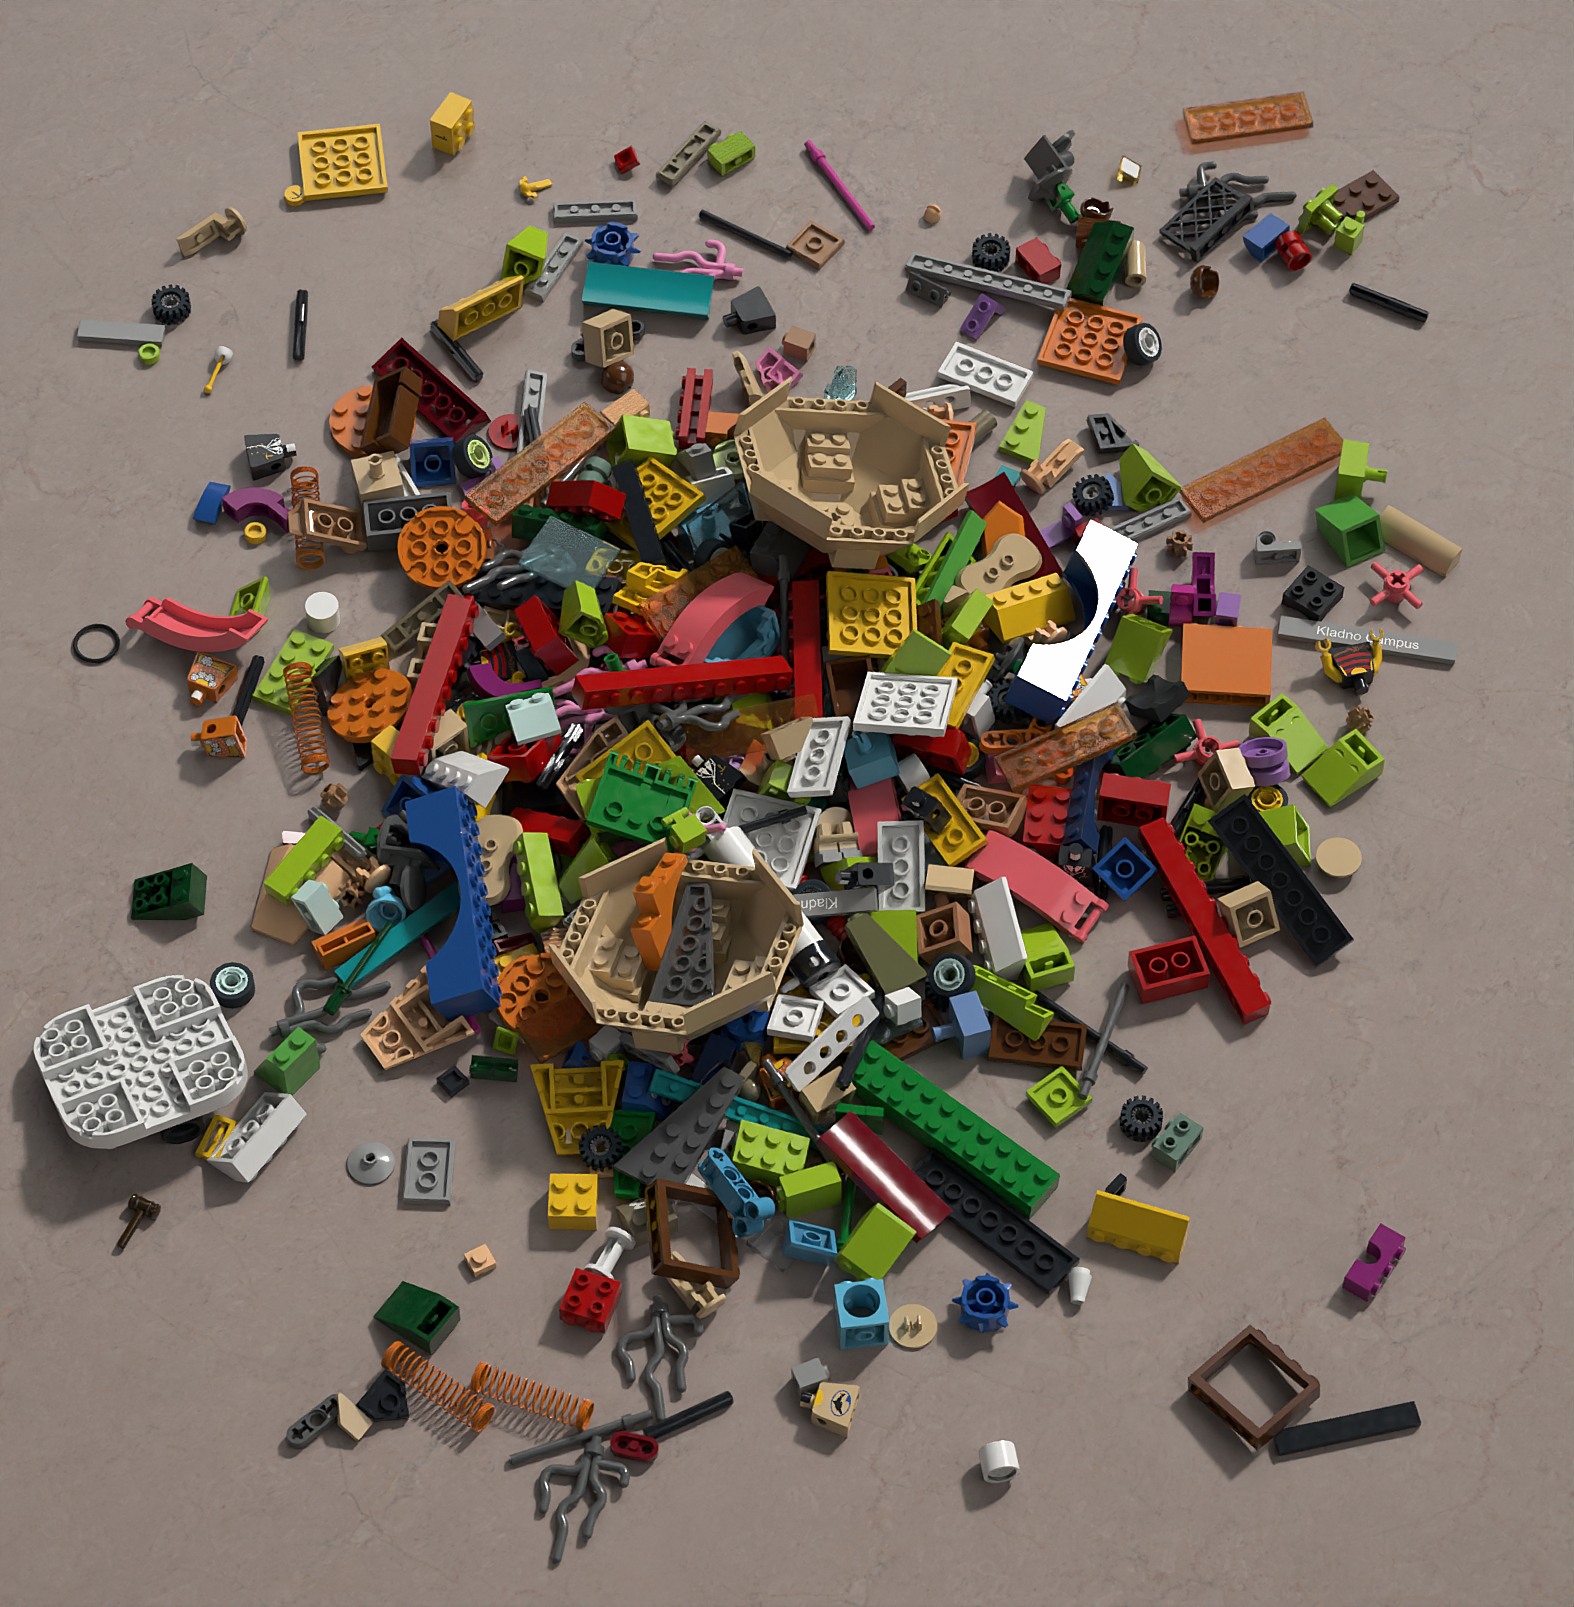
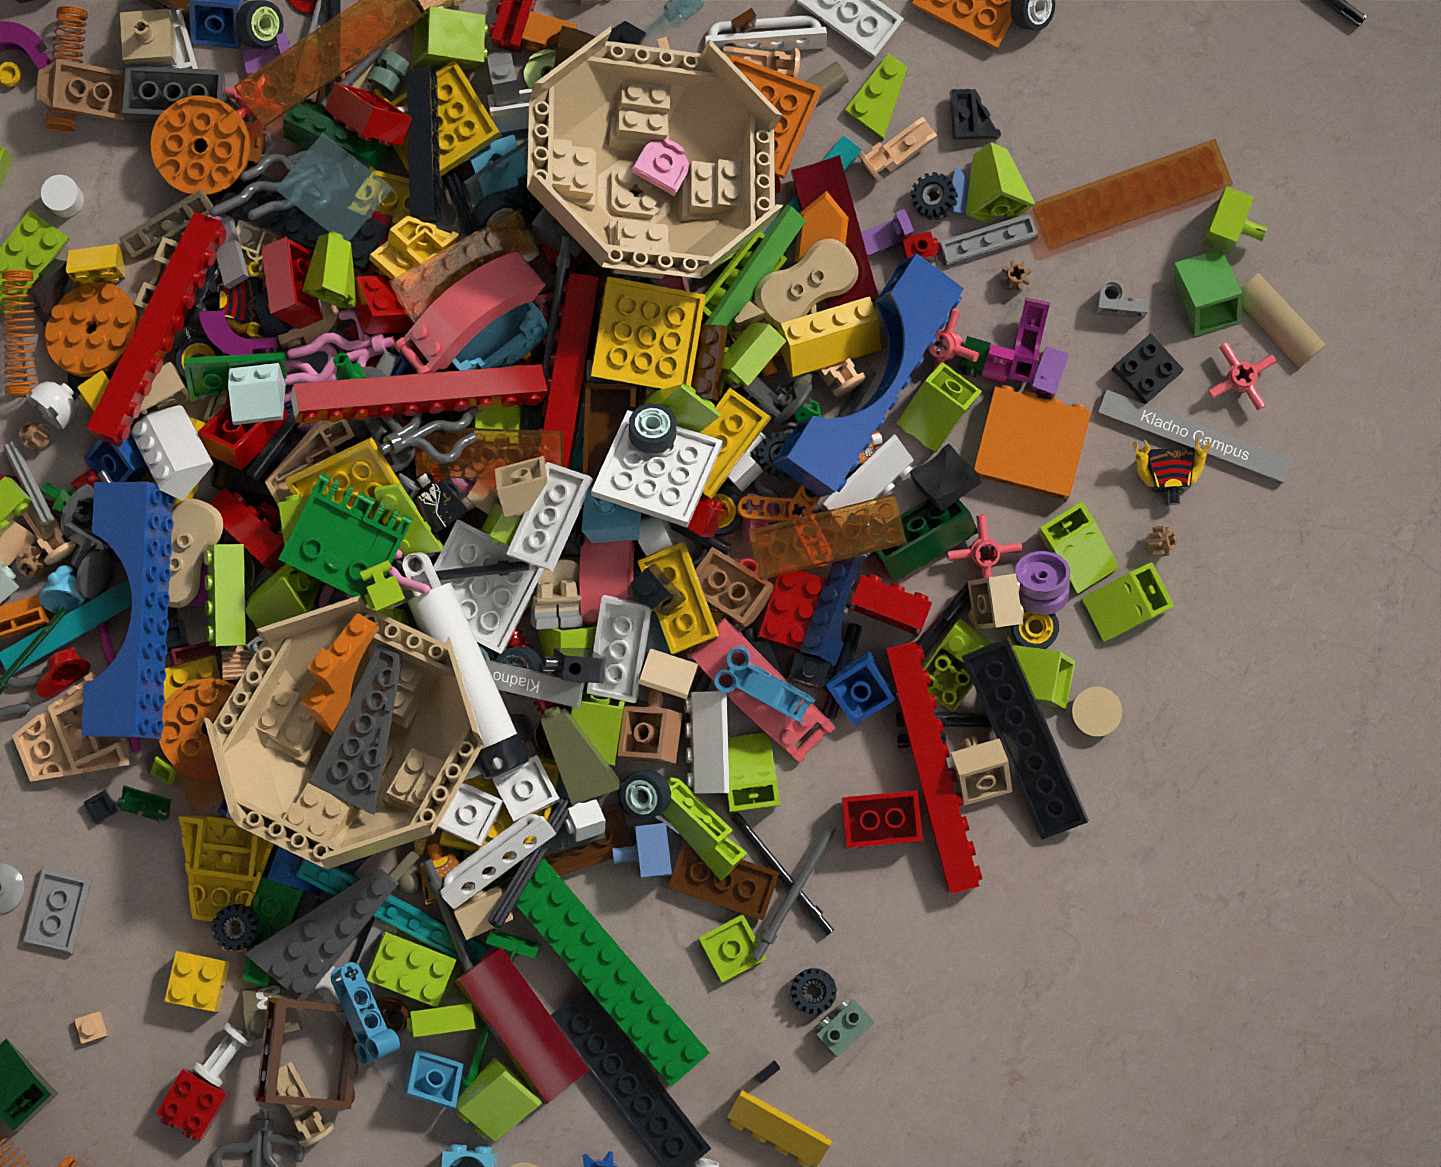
camera: 10 degrees right, 25 degrees up
(346, 767) = (54, 403): none -> white cylinder
(396, 974) = (62, 671): none -> red piece
(854, 492) = (662, 165): none -> bright pink tile
(894, 673) = (652, 416): none -> wheel
(1037, 867) = (763, 686): none -> dark azure piece

